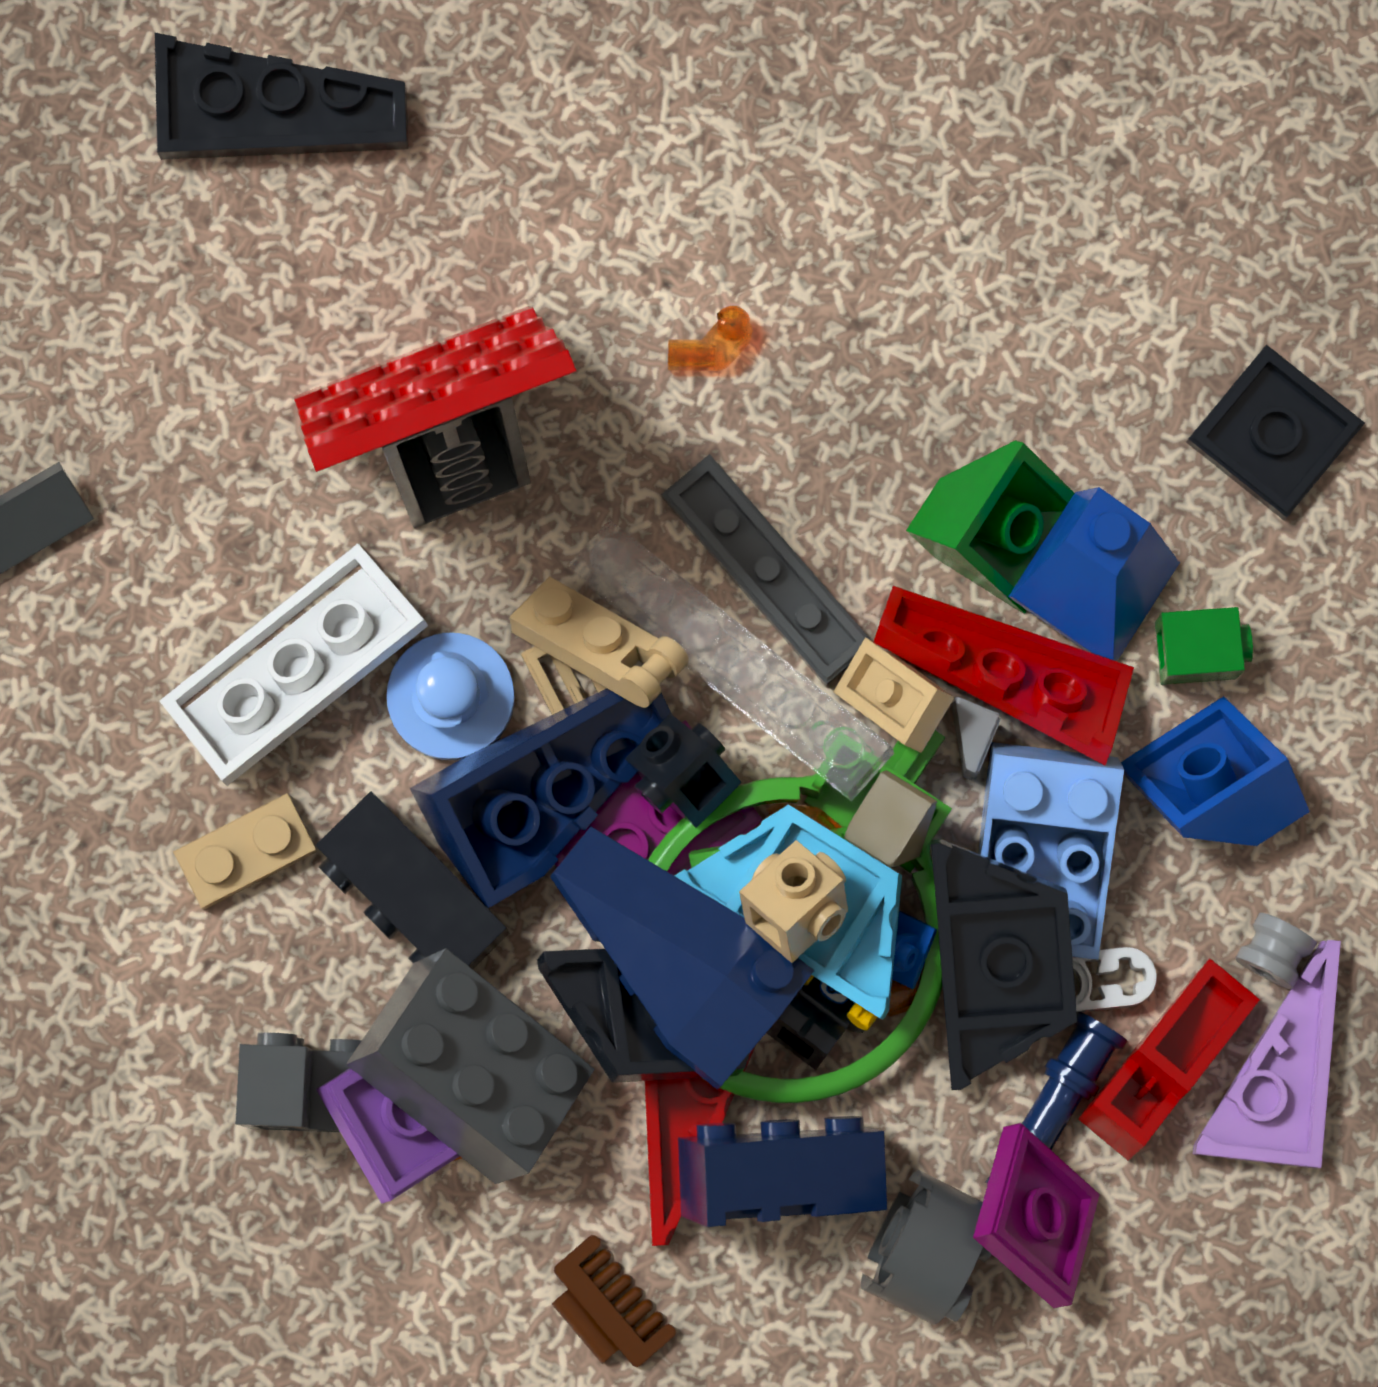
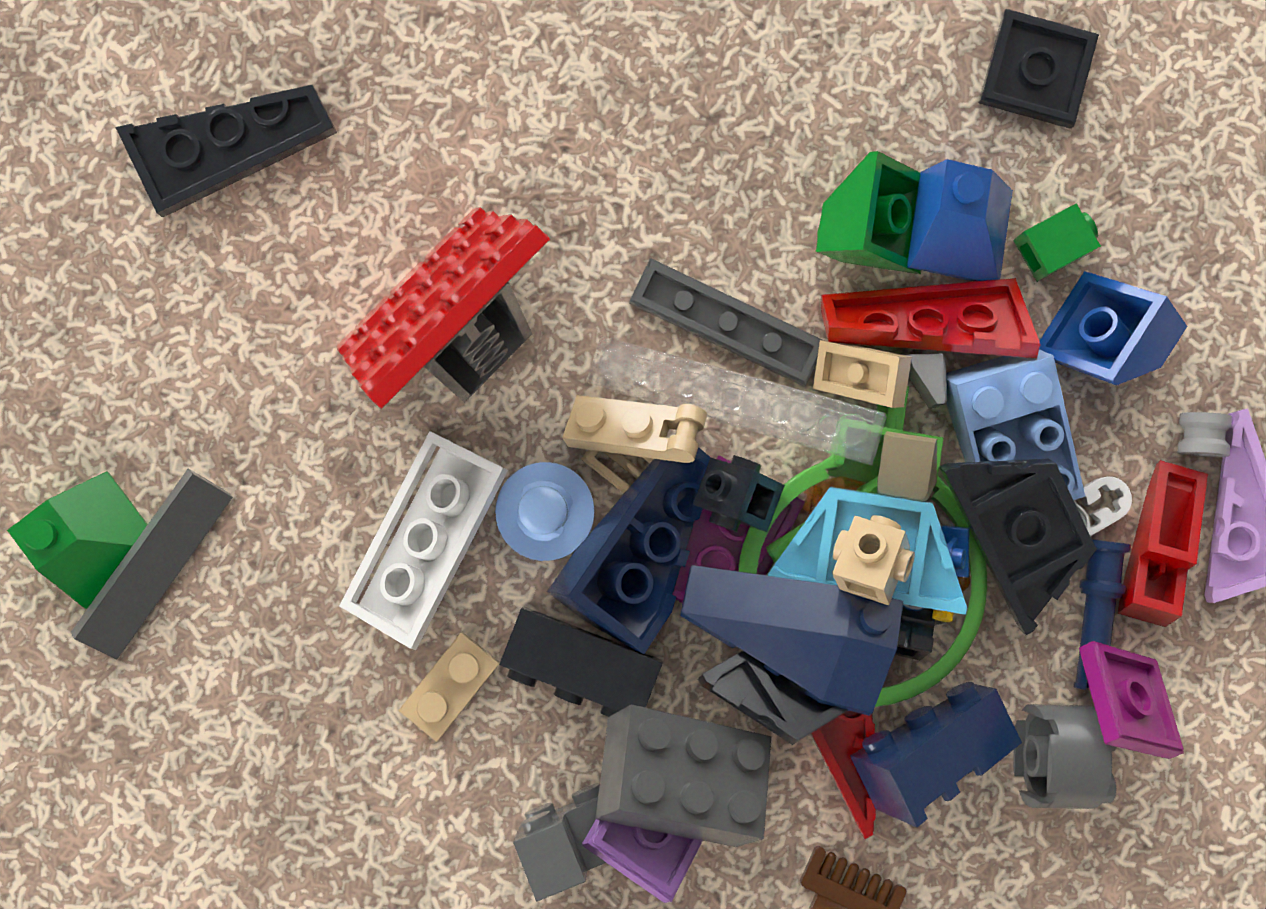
camera: 25 degrees left, 5 degrees up
(717, 348) = (621, 178): clear orange arm -> none

